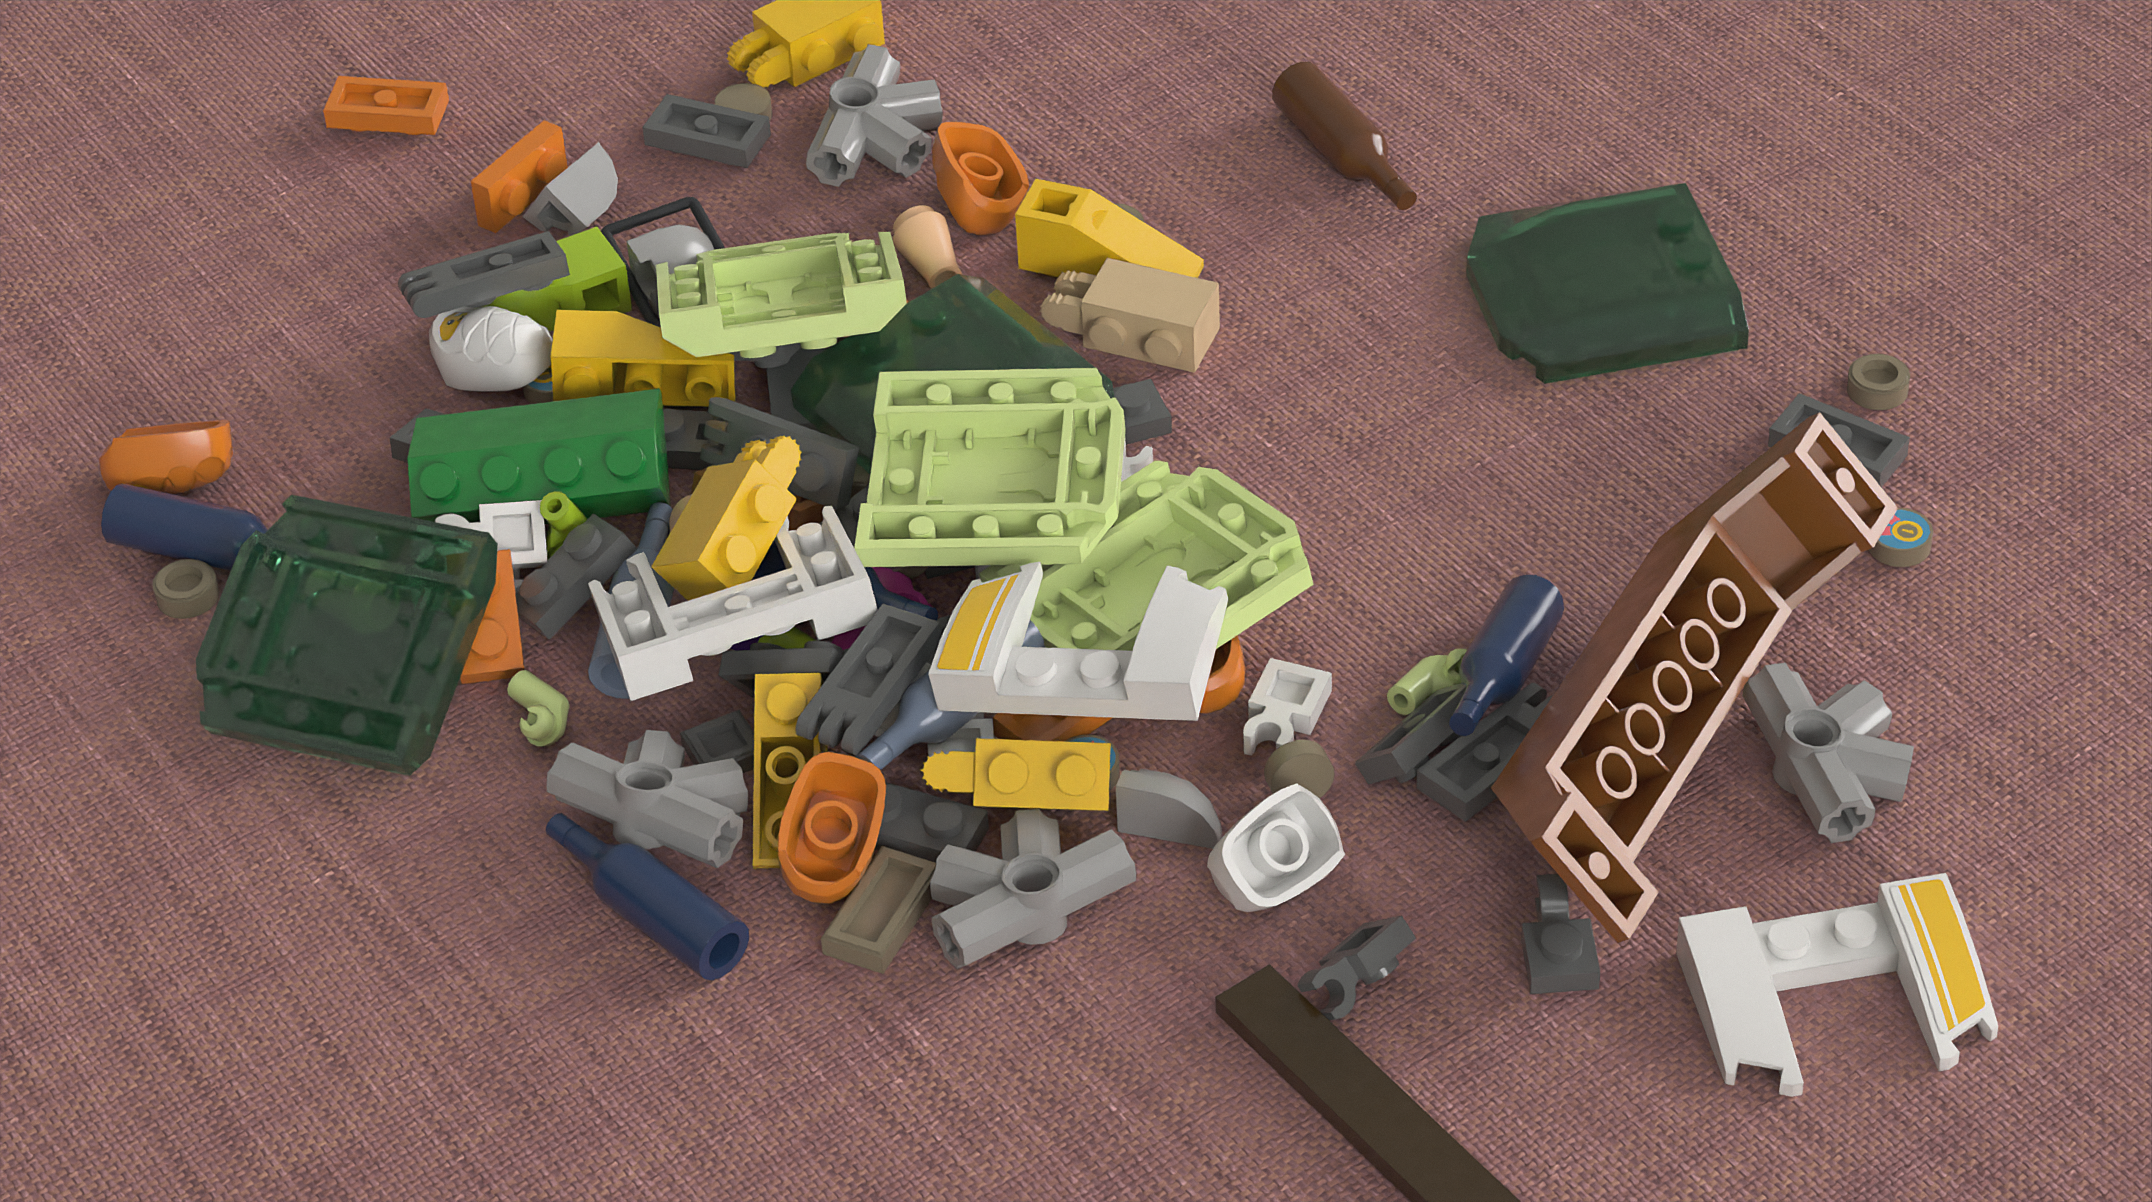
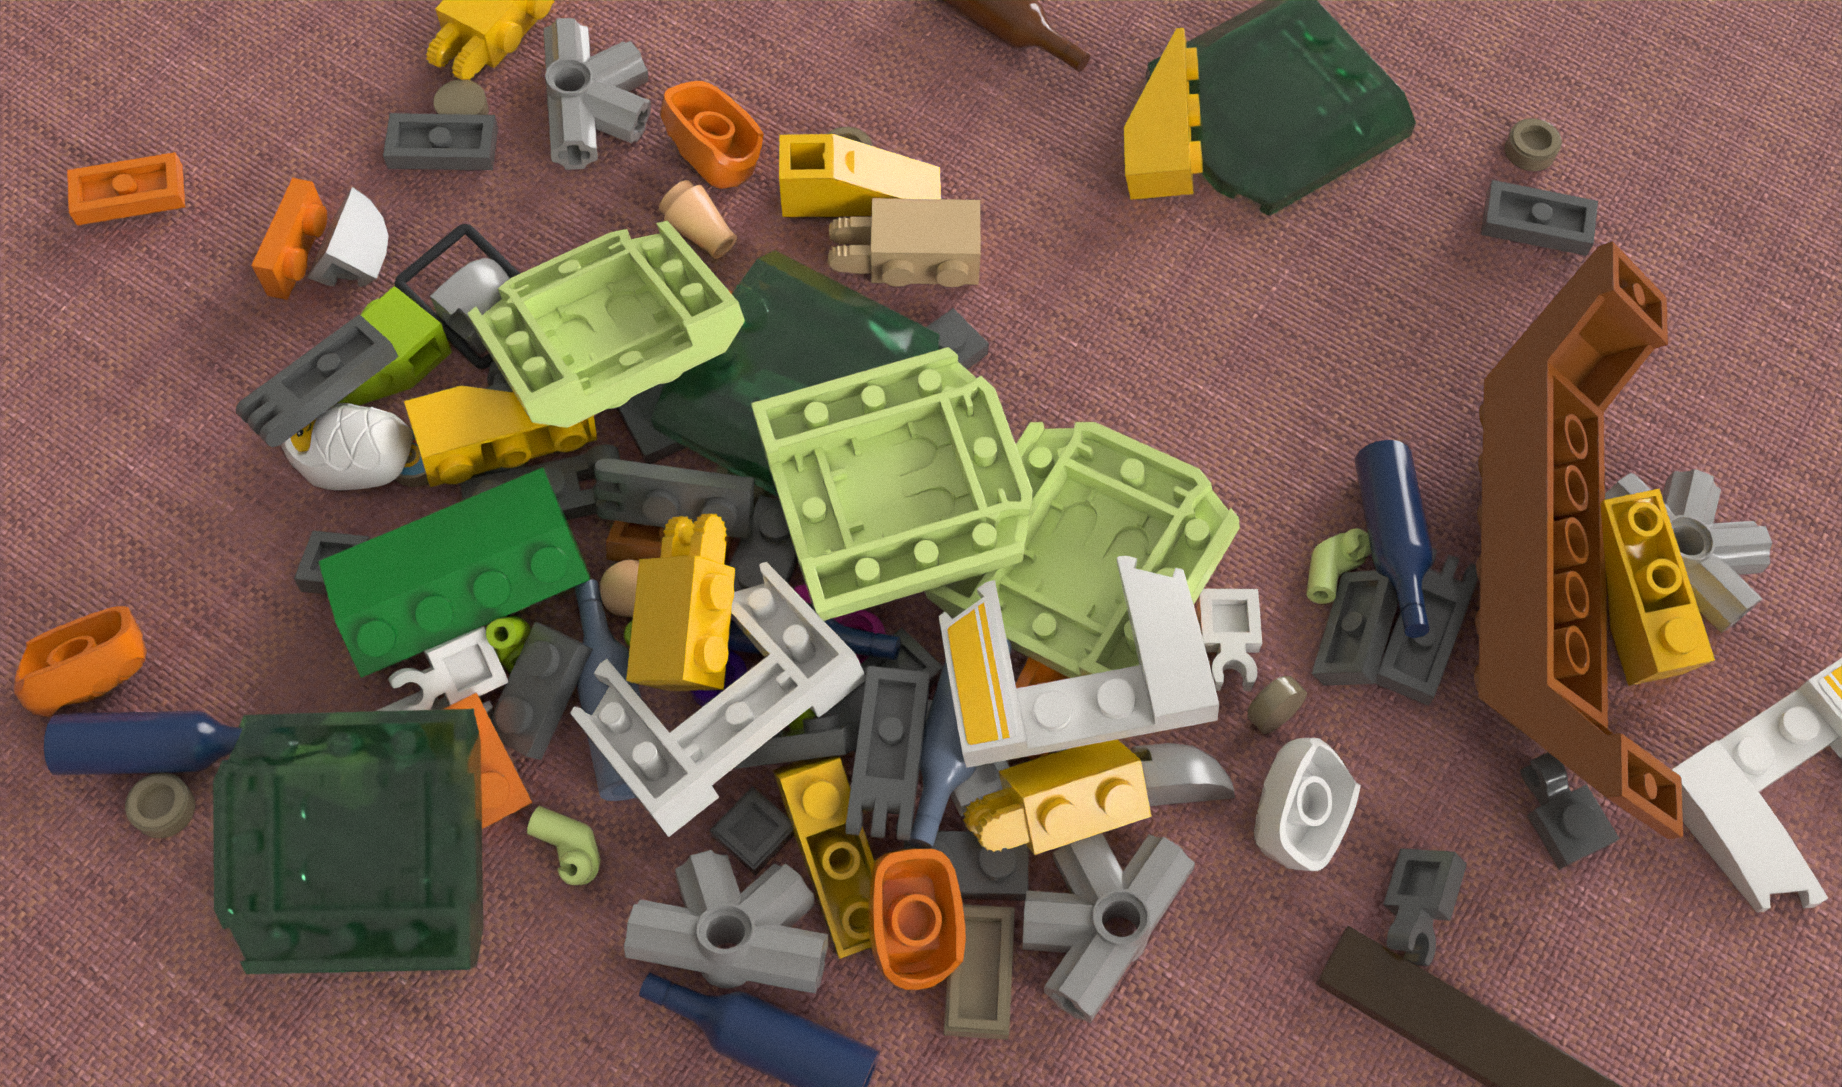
camera: 25 degrees left, 20 degrees up
(1449, 269) = (1158, 131): none -> yellow slope
(1742, 763) = (1649, 591): none -> yellow slope

